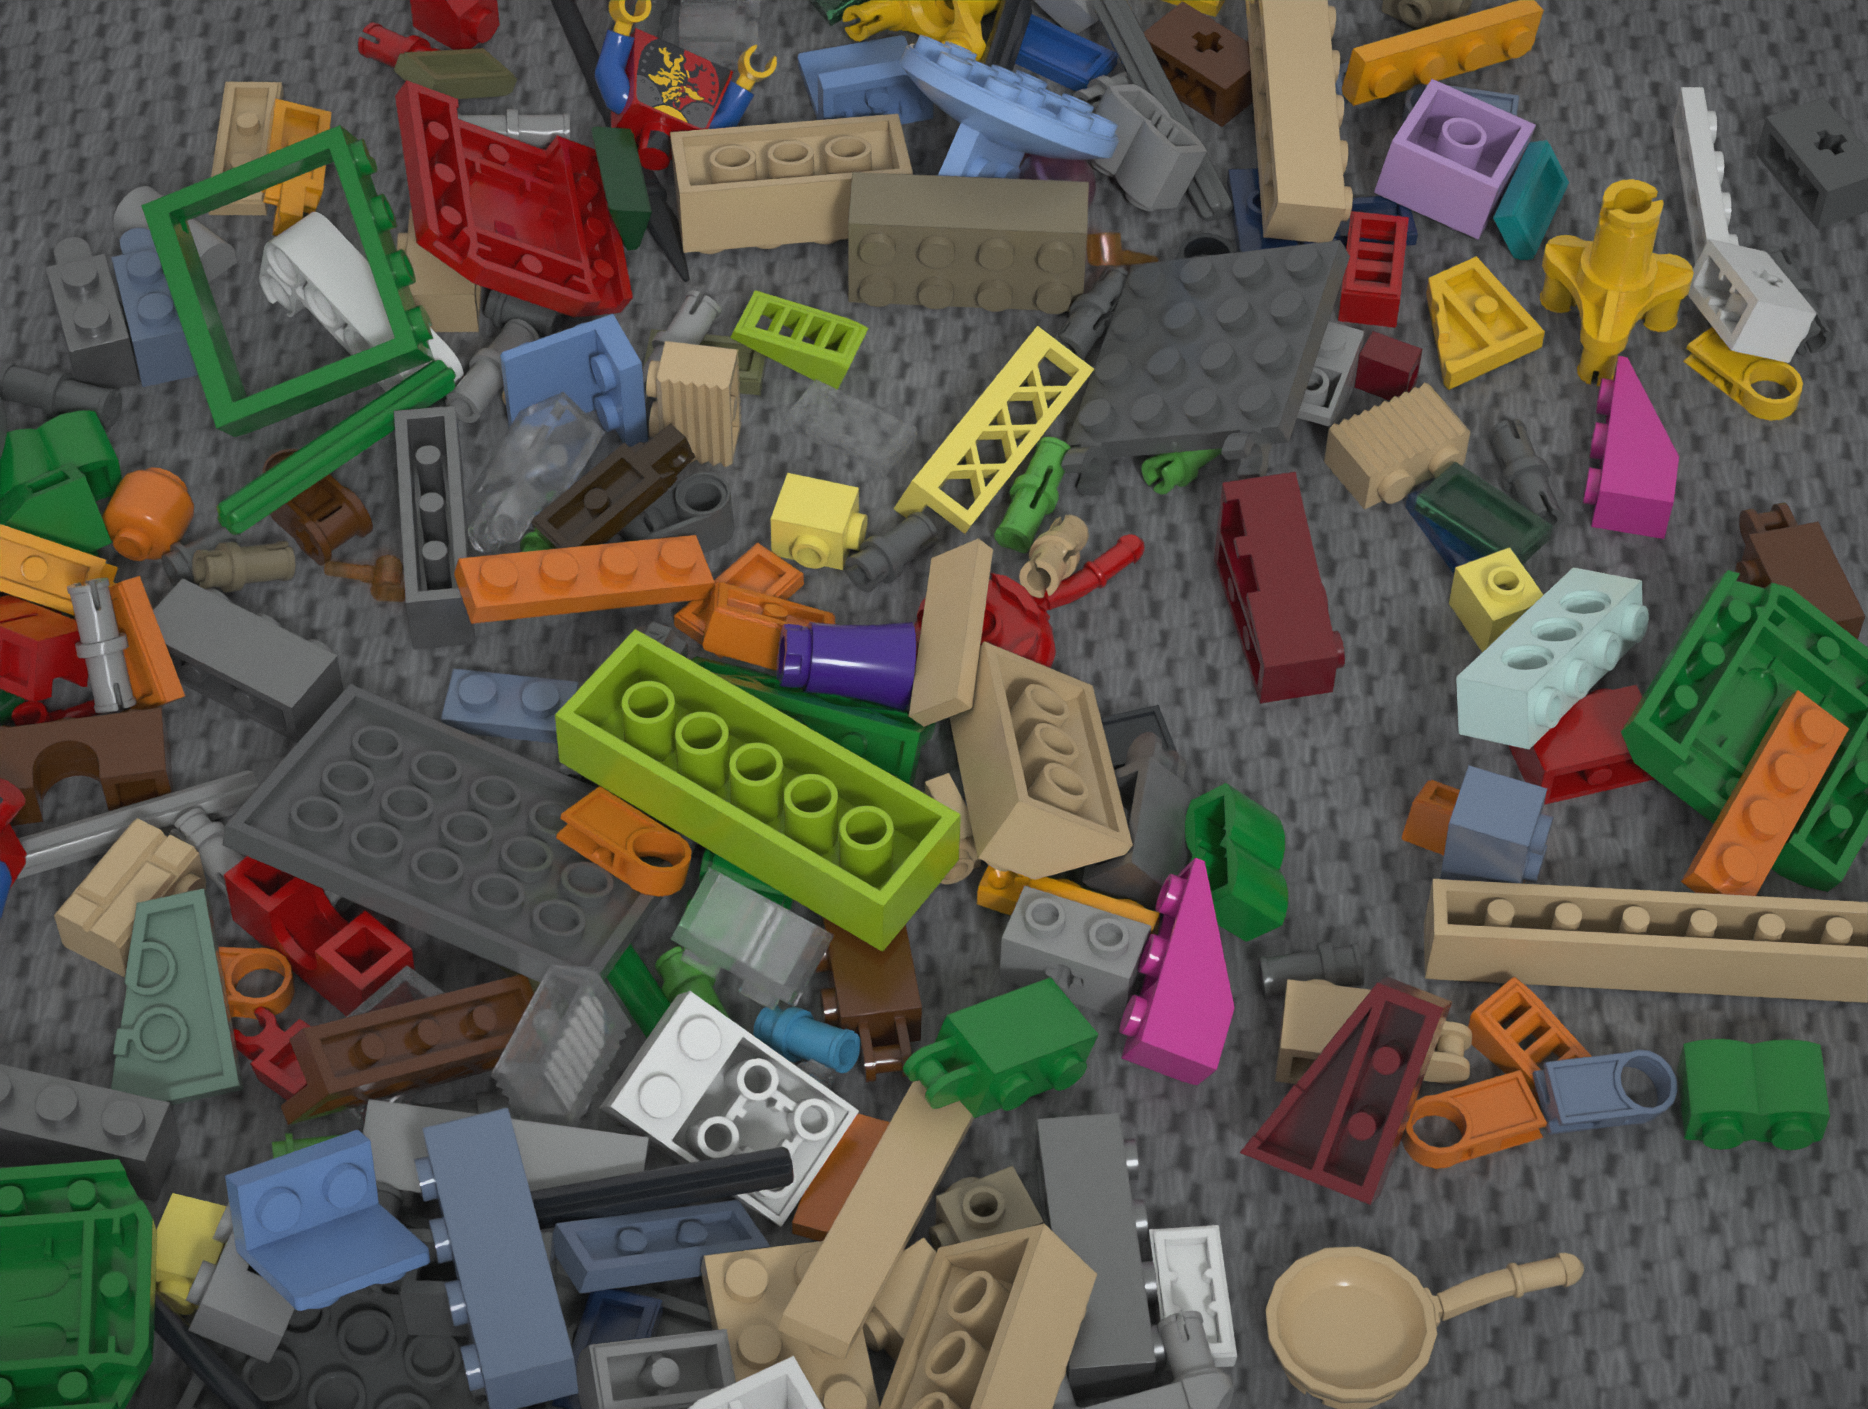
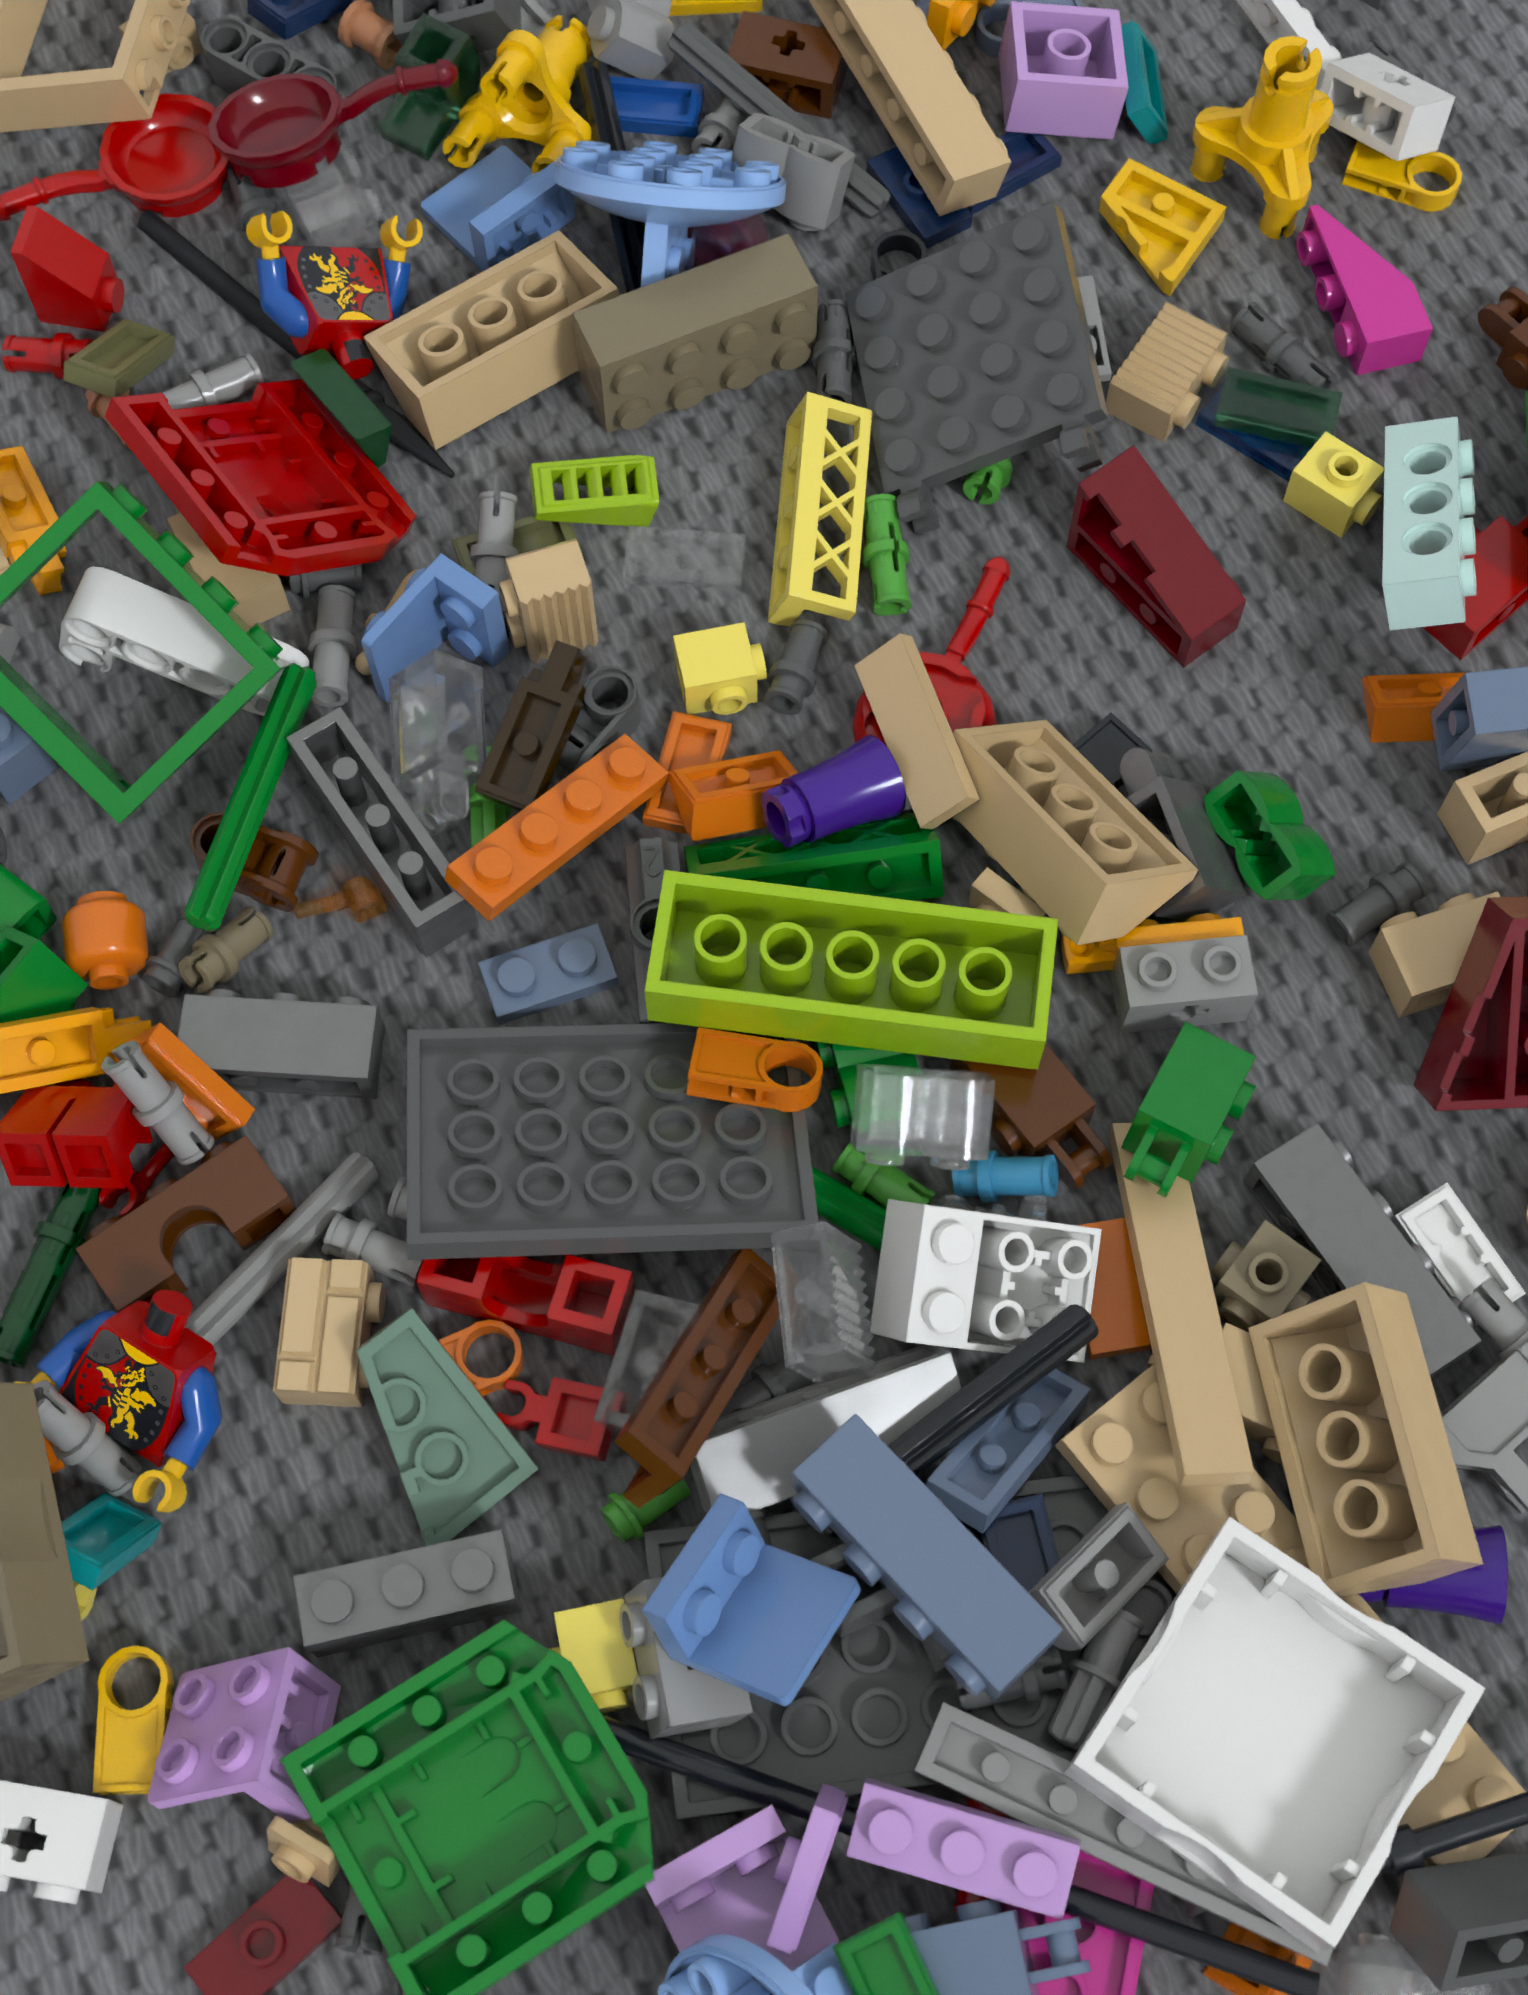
camera: 25 degrees left, 15 degrees up
(1054, 556) = (946, 610): tan pin -> none
(1107, 250) = (828, 287): clear orange hand -> none
(1186, 992) = (1303, 983): dark pink slope -> none
(1373, 301) = (1022, 194): red slope -> none
(1387, 366) = (1120, 297): dark red piece -> none

